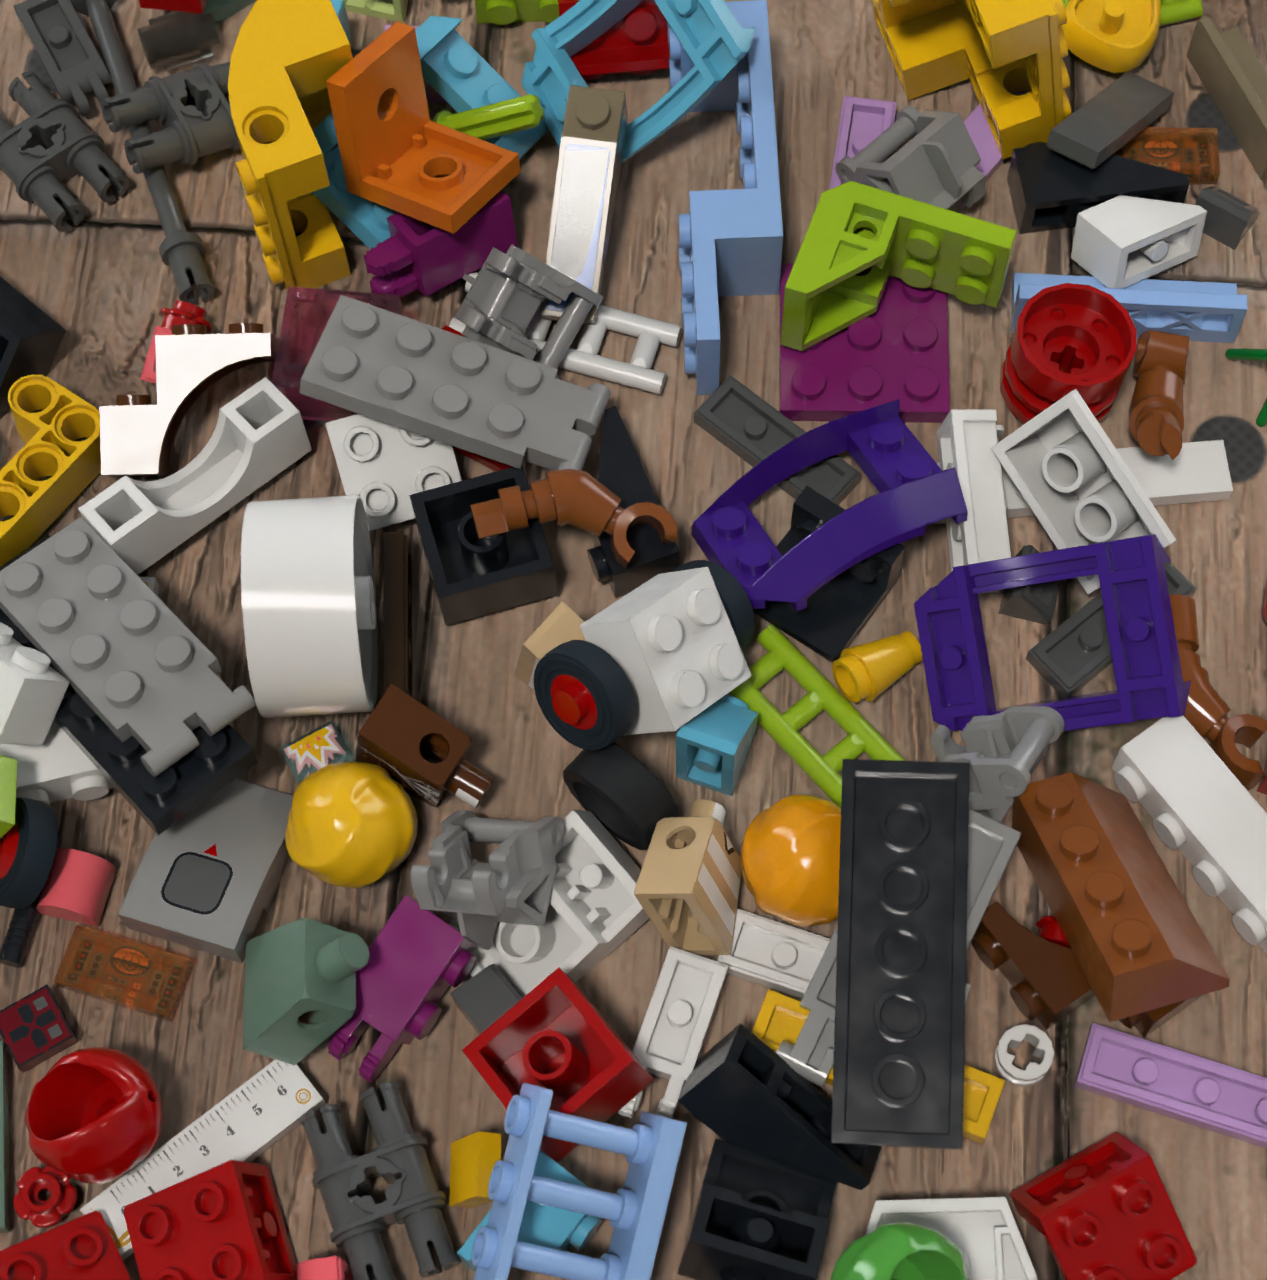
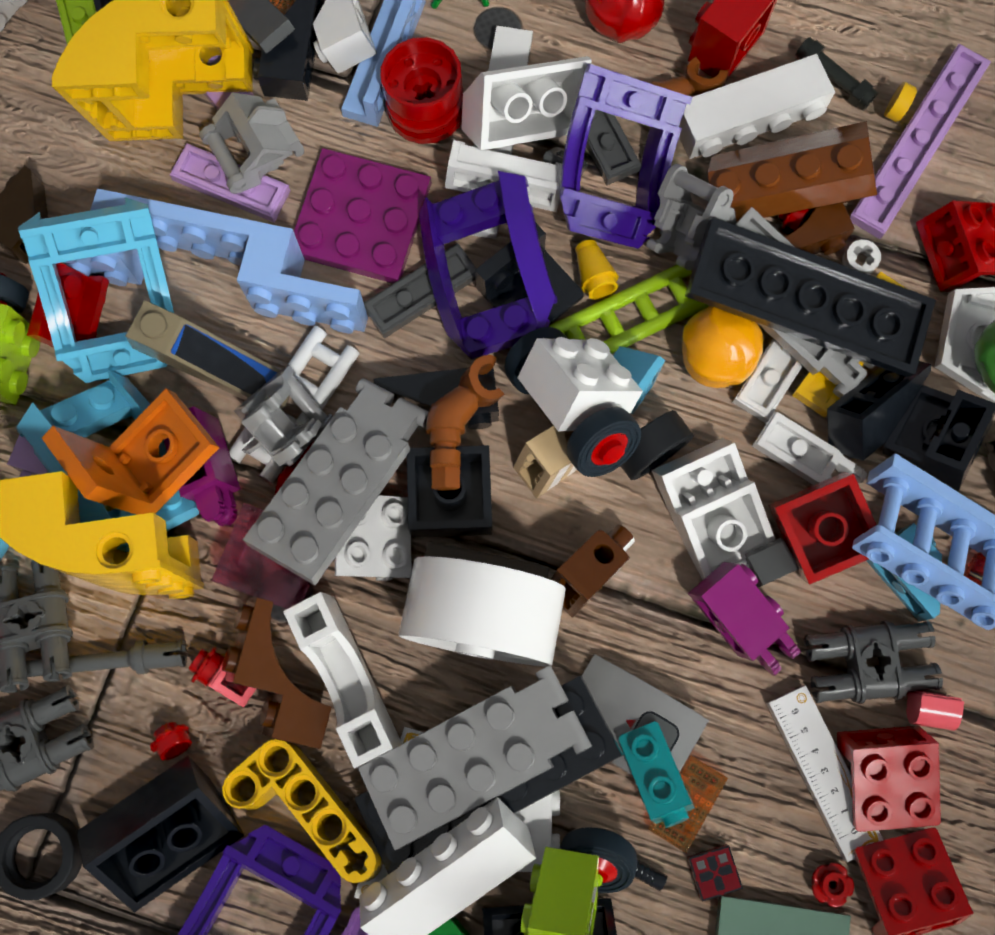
camera: 80 degrees left, 10 degrees up
(77, 887) = (624, 821): coral brick -> none
(83, 312) = (171, 740): none -> red plate
(94, 1115) = (797, 838): red piece -> none
(139, 895) = (656, 775): none -> teal bracket
(299, 987) = (741, 680): sand green torso -> none
(315, 751) = (573, 640): tile -> none
(350, 824) = (630, 625): yellow piece -> none
(471, 1168) = (873, 597): yellow tile -> none
(496, 118) = (121, 403): lime axle -> none
(506, 890) = (709, 546): light grey piece -> none
(692, 881) = (734, 418): tan torso -> none
(894, 237) = (311, 177): lime bracket -> none
(1157, 400) = (474, 53): dark orange piece -> none

